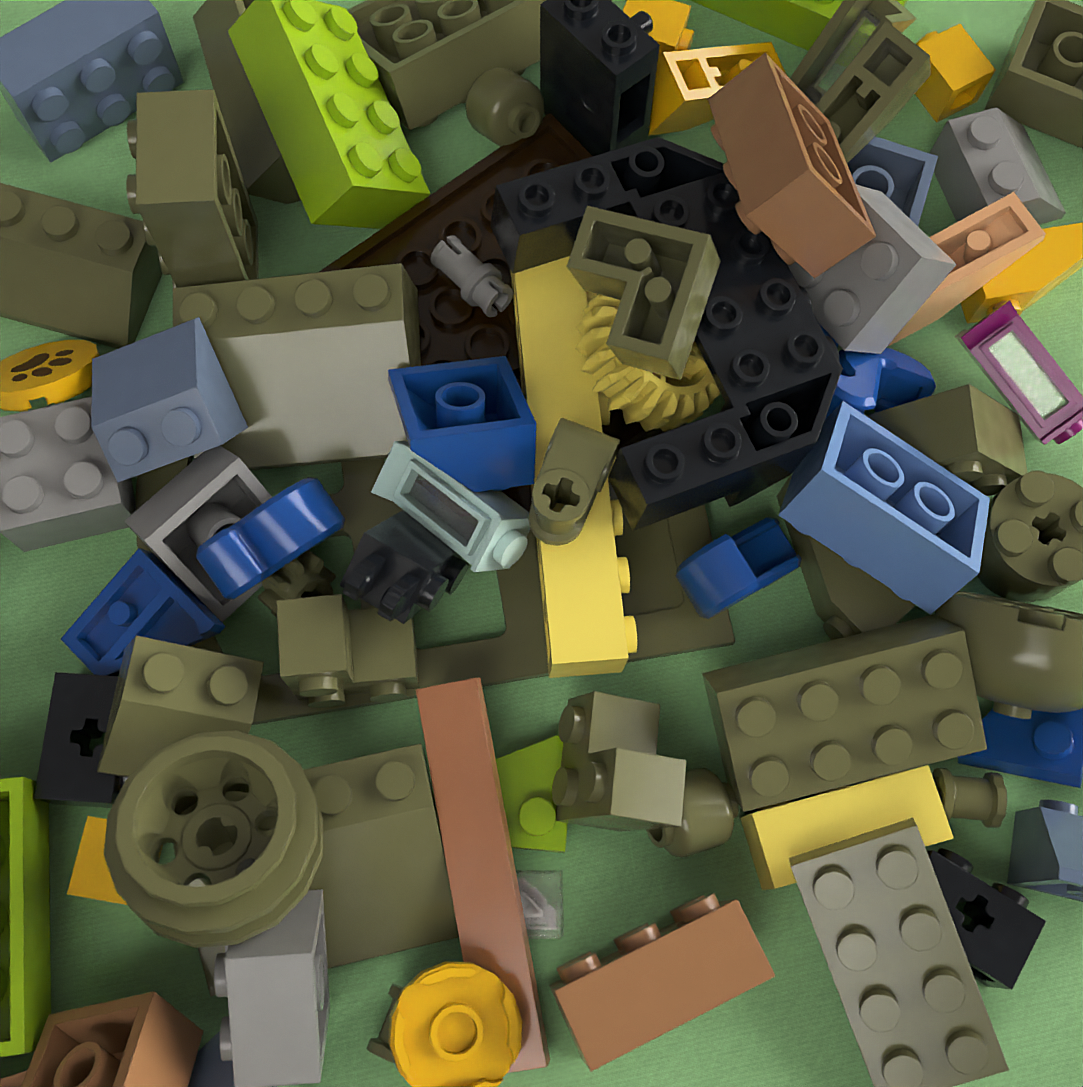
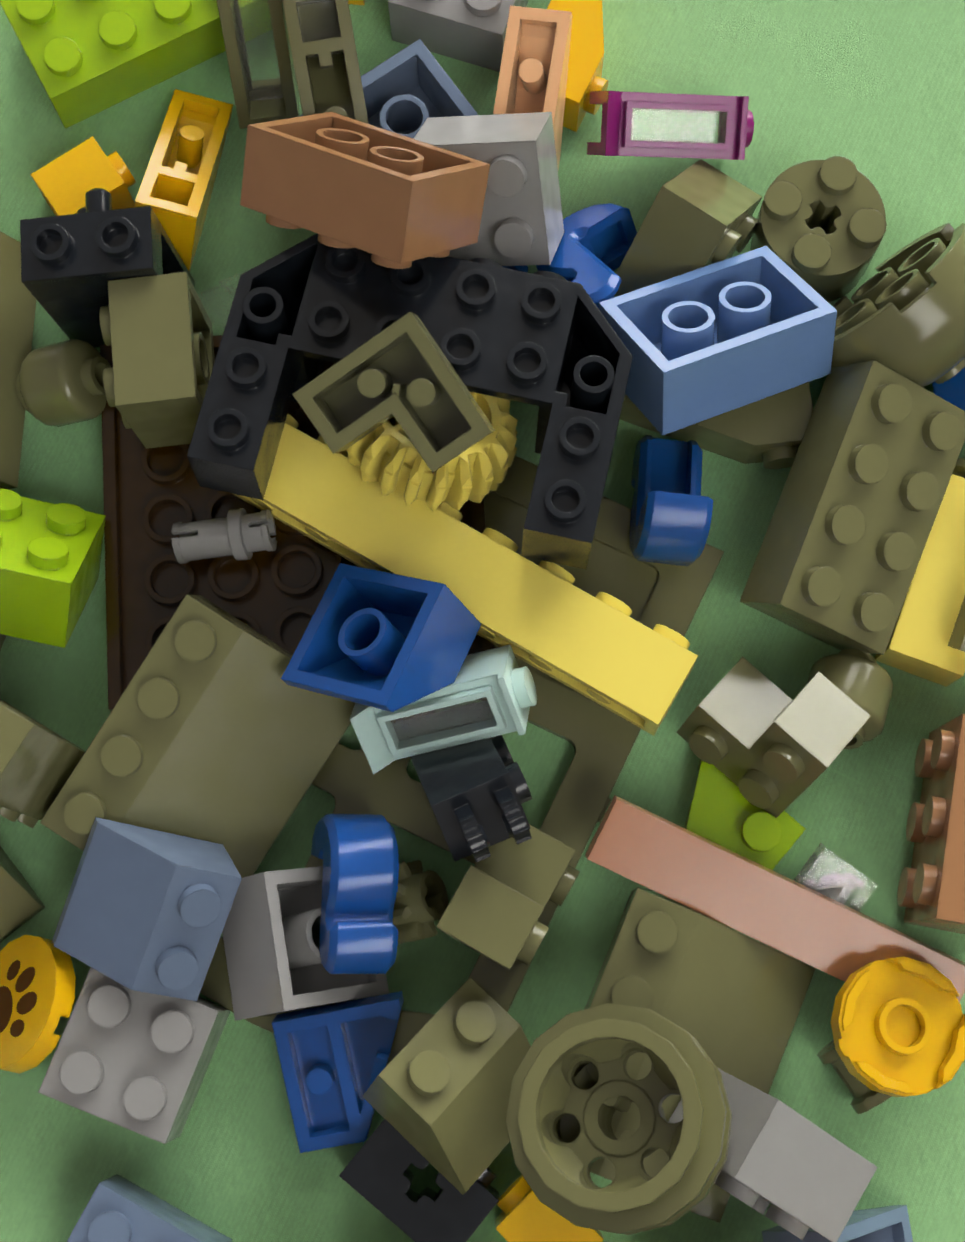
camera: 45 degrees left, 5 degrees up
(564, 123) = (158, 356): none -> olive brick
(570, 475) = (504, 581): olive piece -> none

